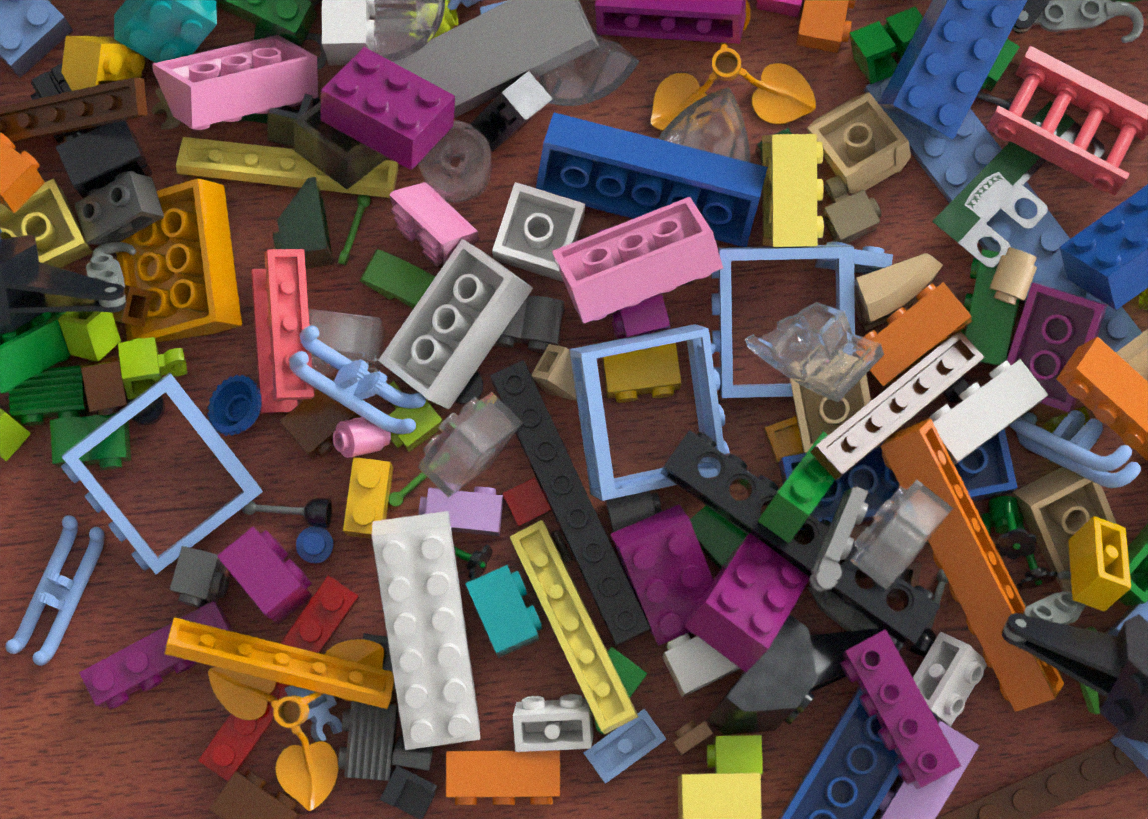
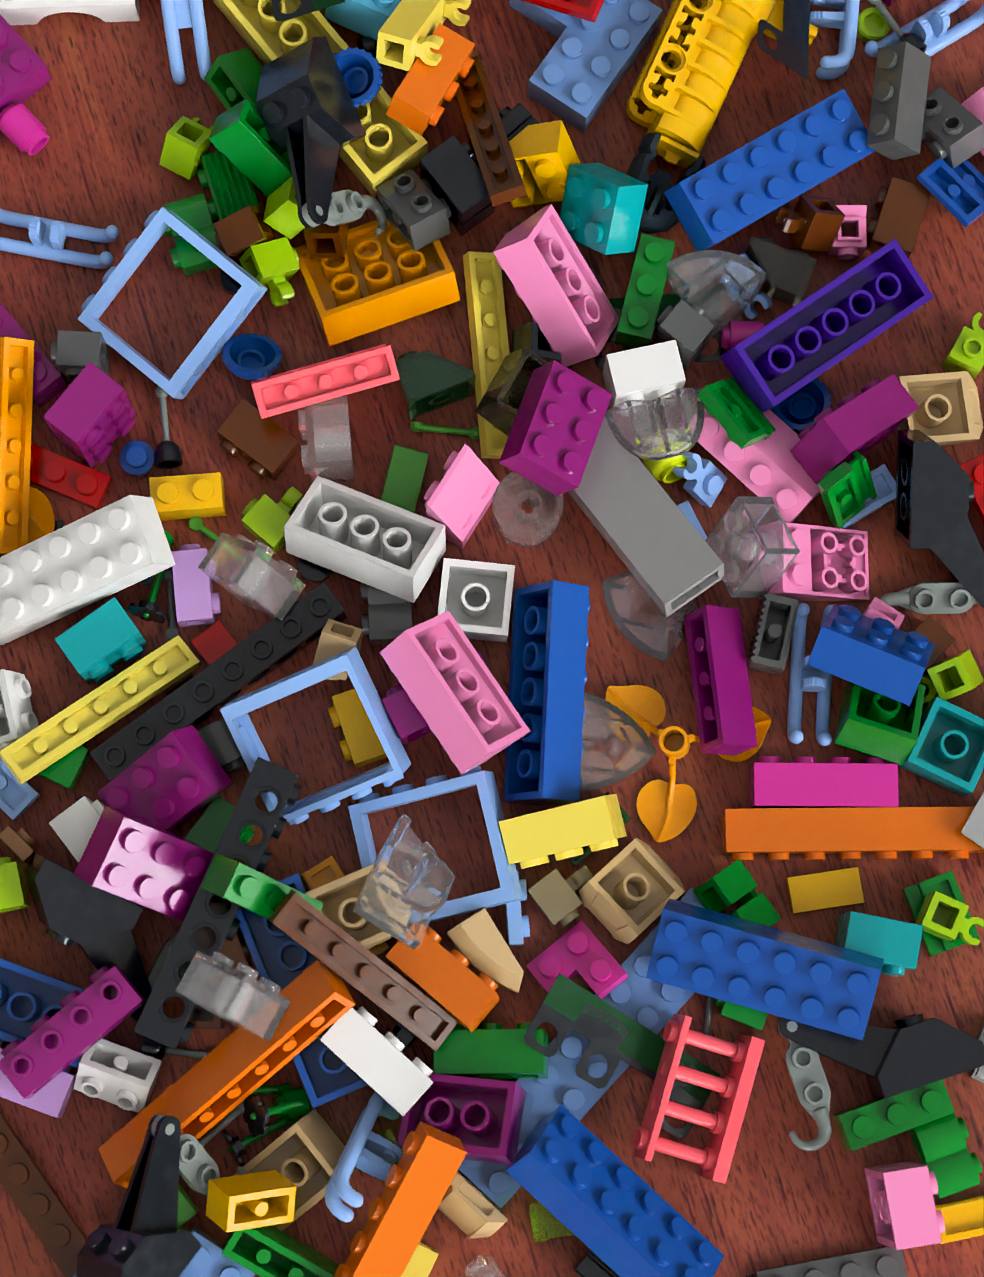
camera: 70 degrees right, 0 degrees up
(353, 384) = (282, 454): light blue piece -> none
(359, 437) = (242, 475): bright pink brick -> none
(504, 544) = (172, 631): none -> dark grey hinge
(511, 110) = (585, 548): black brick -> none
(837, 540) = (214, 935): light grey hinge -> none
(910, 206) = (579, 954): none -> dark pink plate
(1013, 276) = (518, 1062): tan brick -> none

